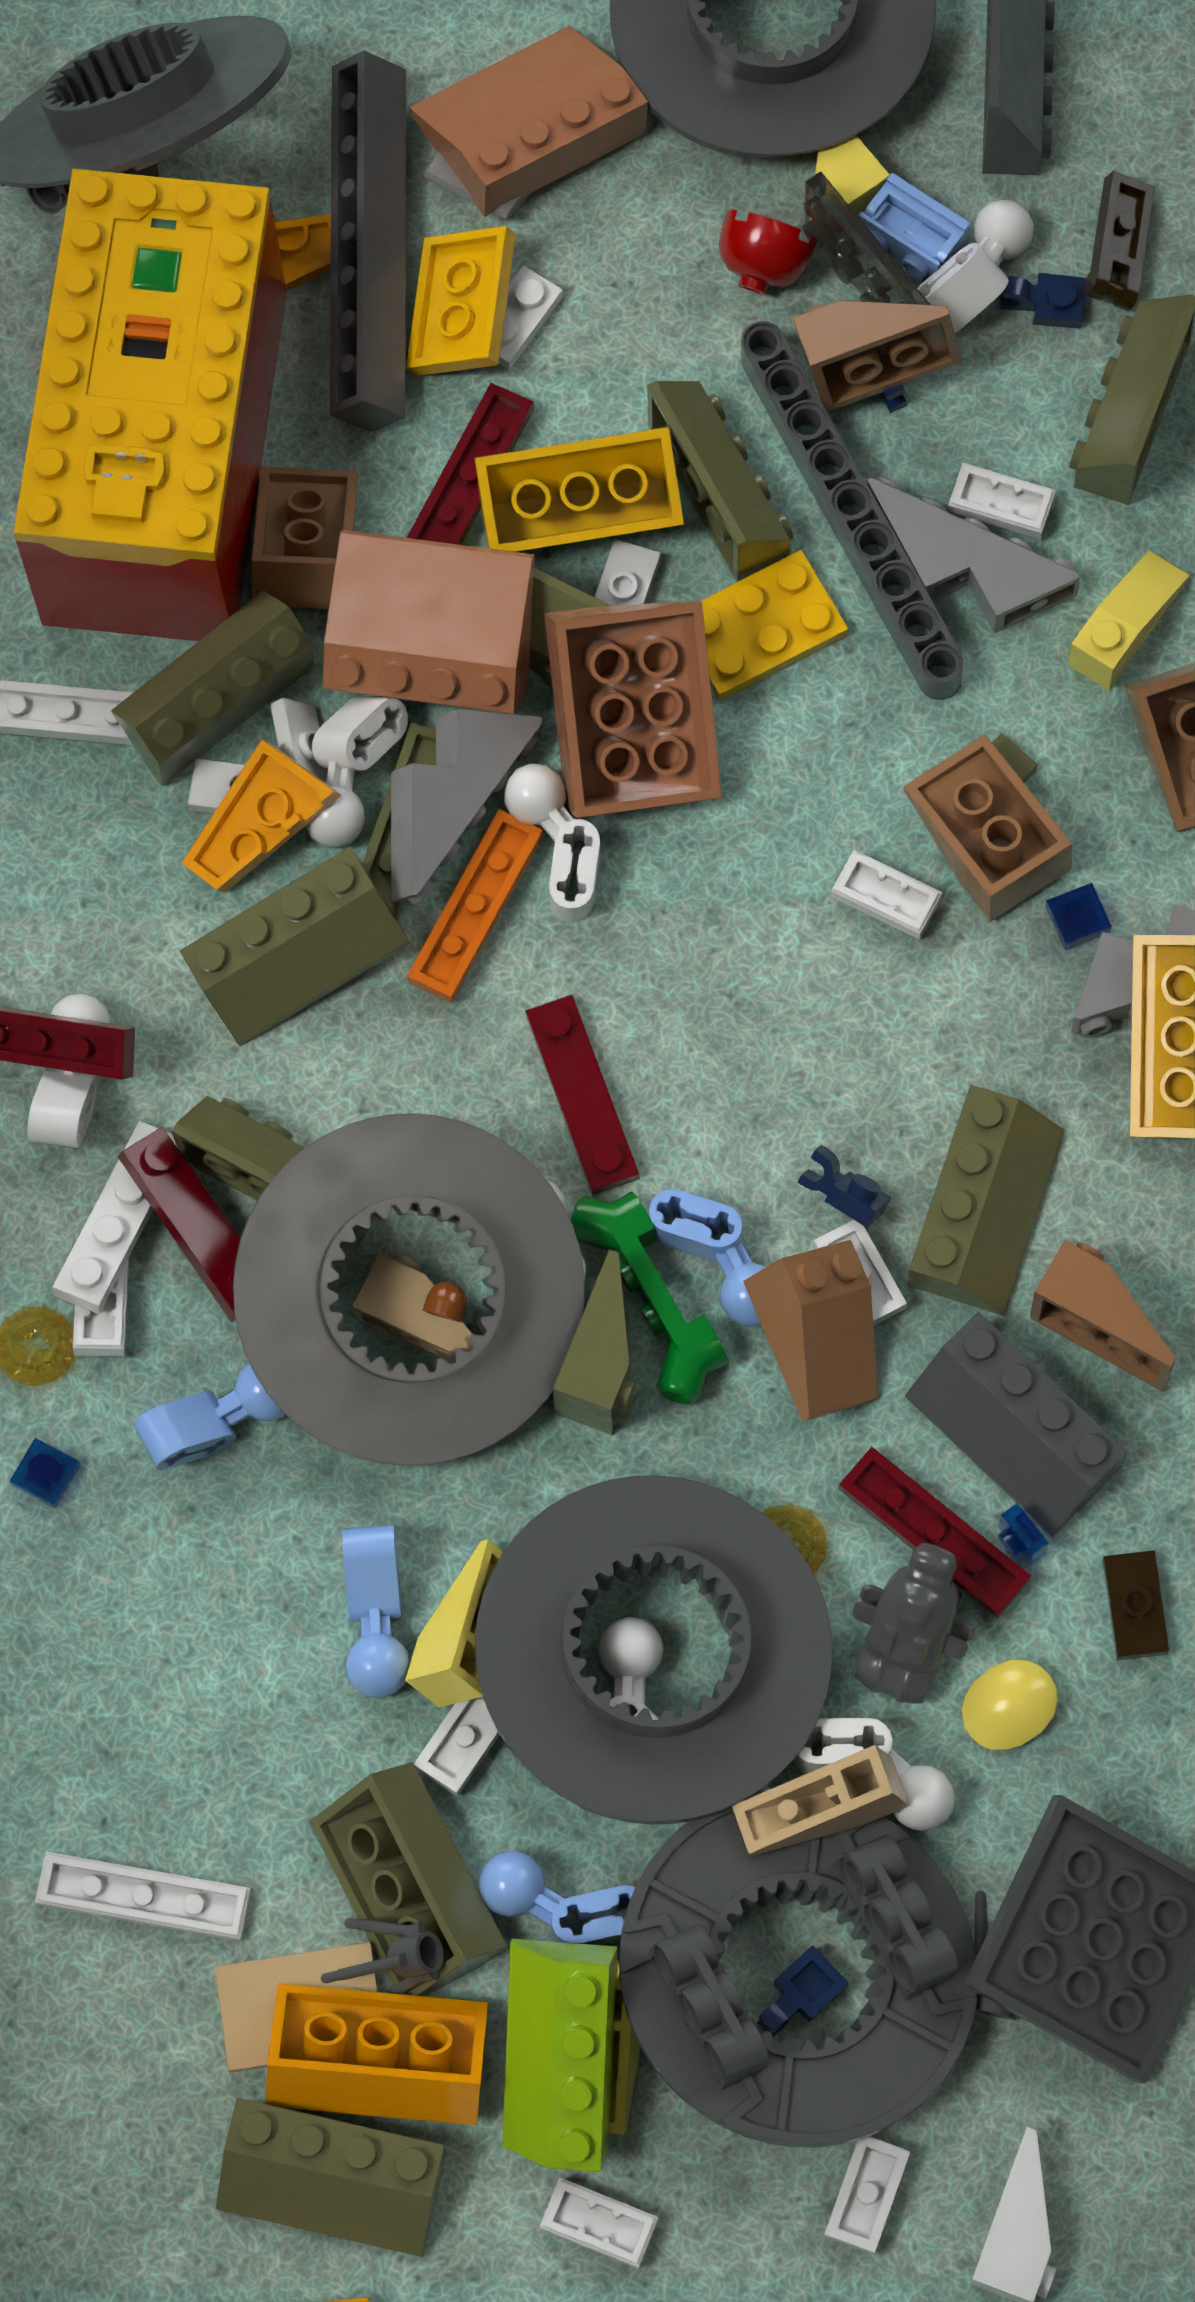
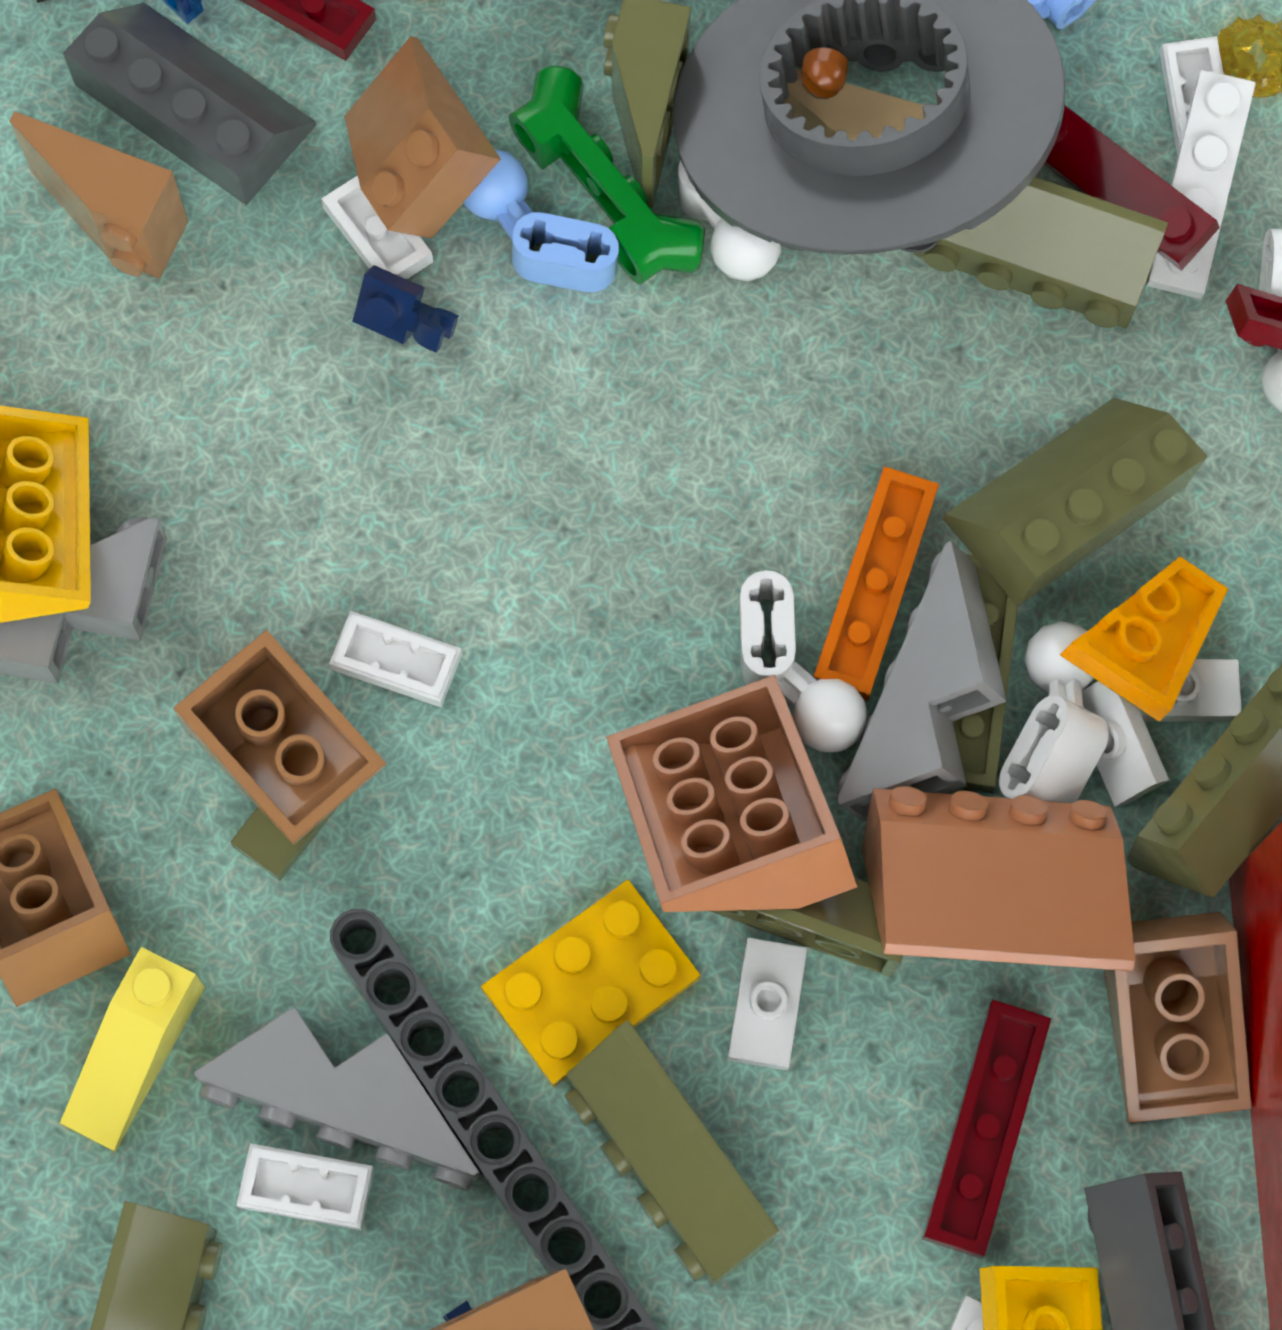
camera: 165 degrees right, 0 degrees up
(579, 491) = (841, 1087): yellow slope -> none
(582, 1095) = (716, 392): dark red plate -> none
(985, 1201) = (248, 322): olive slope -> none
(1078, 916) = (166, 661): clear blue plate -> none

